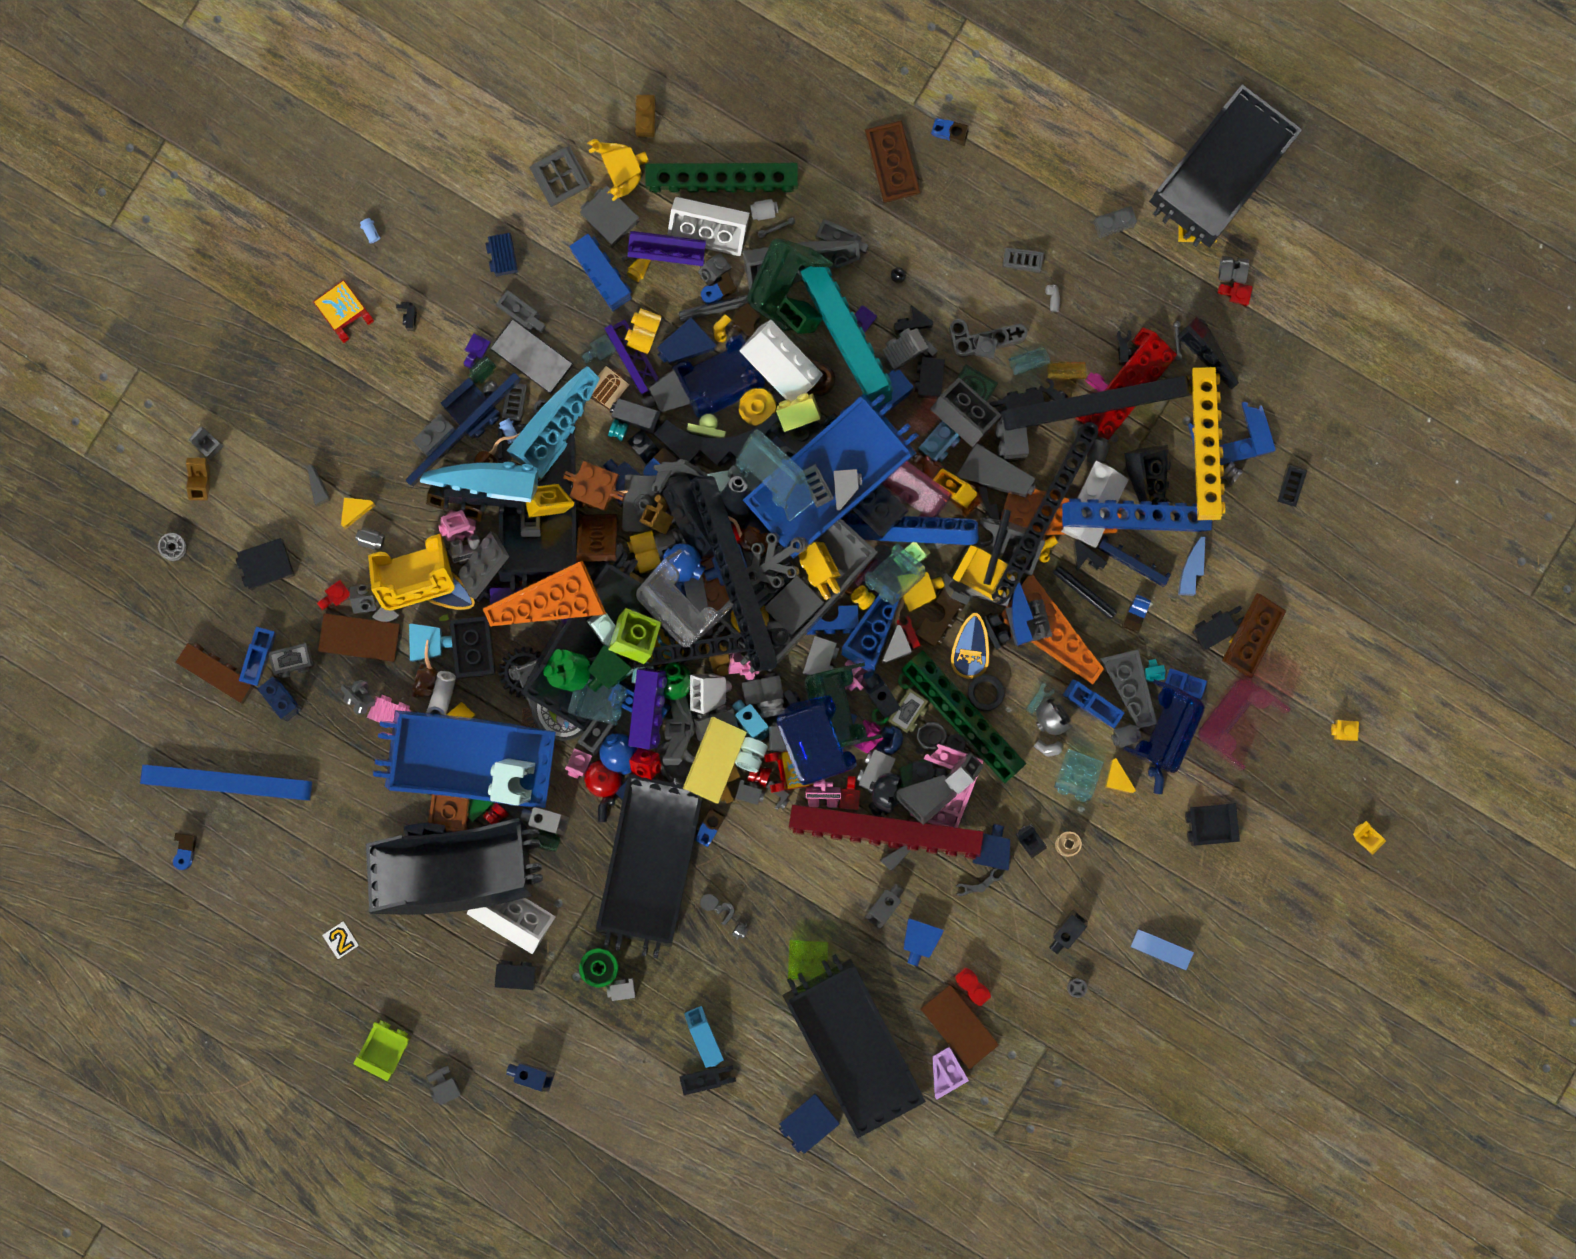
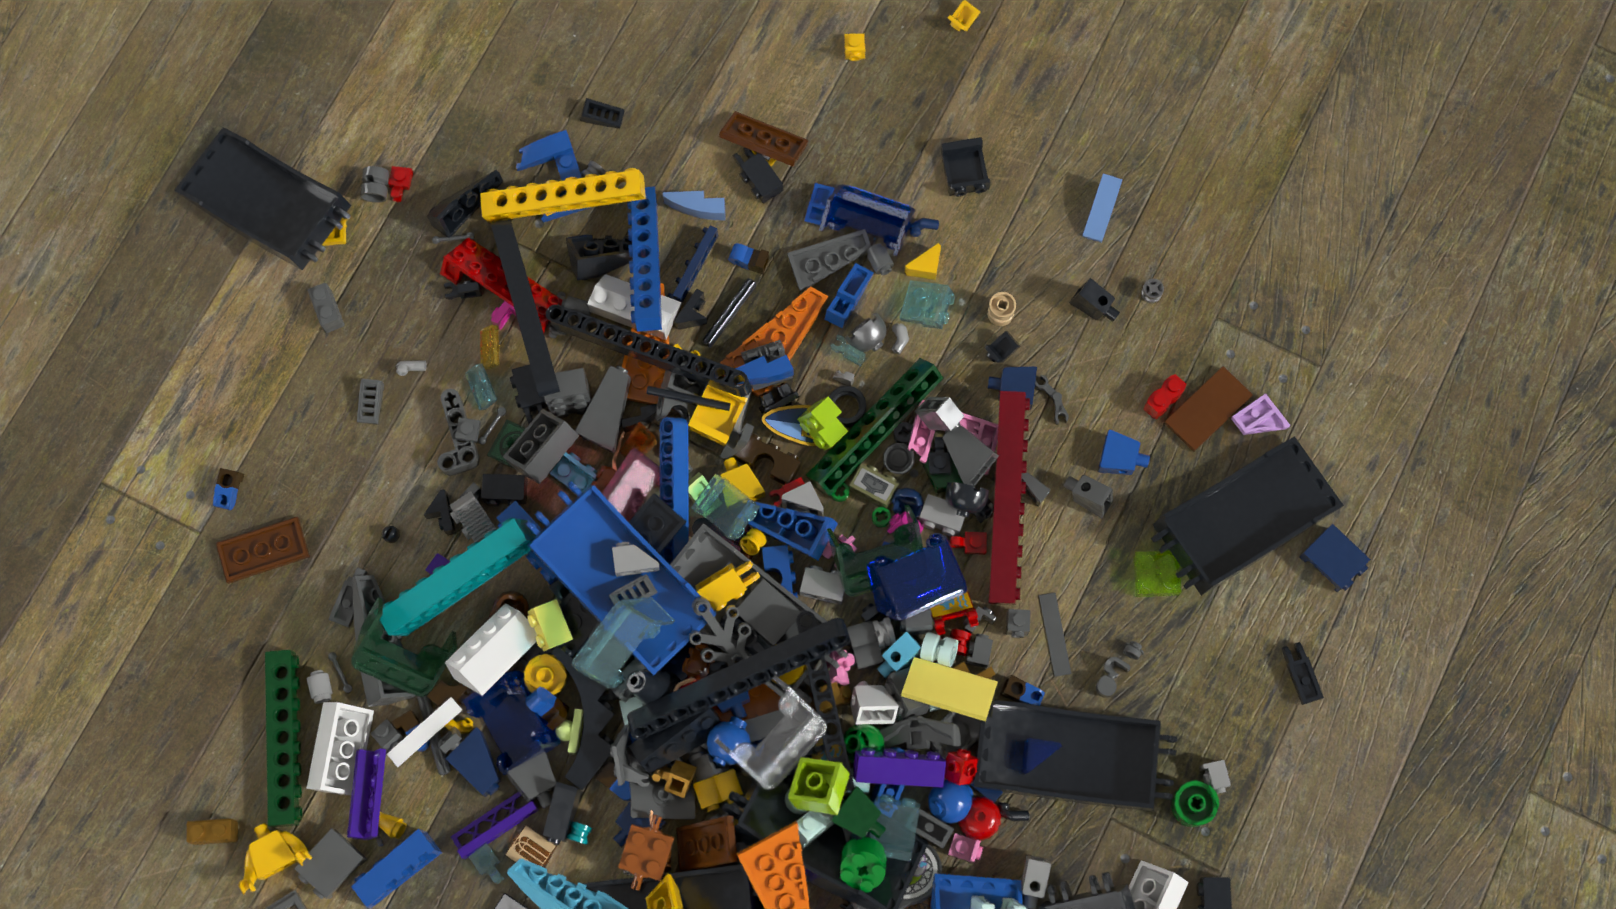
camera: 90 degrees left, 10 degrees down
(537, 1078) = (1330, 863): dark blue torso -> none
(548, 840) = (1058, 873): clear green brick -> none
(643, 330) = (463, 813): yellow brick -> none
(643, 446) = (596, 802): black bracket -> none
(653, 832) = (1036, 752): none -> clear blue slope
(703, 1037) = (1255, 680): dark azure slope -> none
(706, 321) = (450, 740): none -> dark grey plate
(715, 299) = (424, 732): none -> white sticker
(728, 408) = (547, 707): none -> leg
(761, 862) = (1055, 634): none -> dark grey sticker
(771, 829) = (1018, 623): none -> dark grey brick
(803, 320) = (443, 630): dark green torso -> none
(823, 790) = (970, 570): bright pink hips -> none
(877, 690) = (852, 521): black torso -> none
(961, 491) = (627, 440): yellow brick -> none
(968, 668) = (822, 423): none -> lime brick
(1005, 378) = (501, 412): none -> dark grey hinge
(1013, 693) = (846, 378): none -> light grey tile
(1053, 393) = (518, 357): black plate -> none
(1154, 671) = (809, 236): teal tile -> none
(1230, 709) = (848, 158): clear pink windscreen -> none

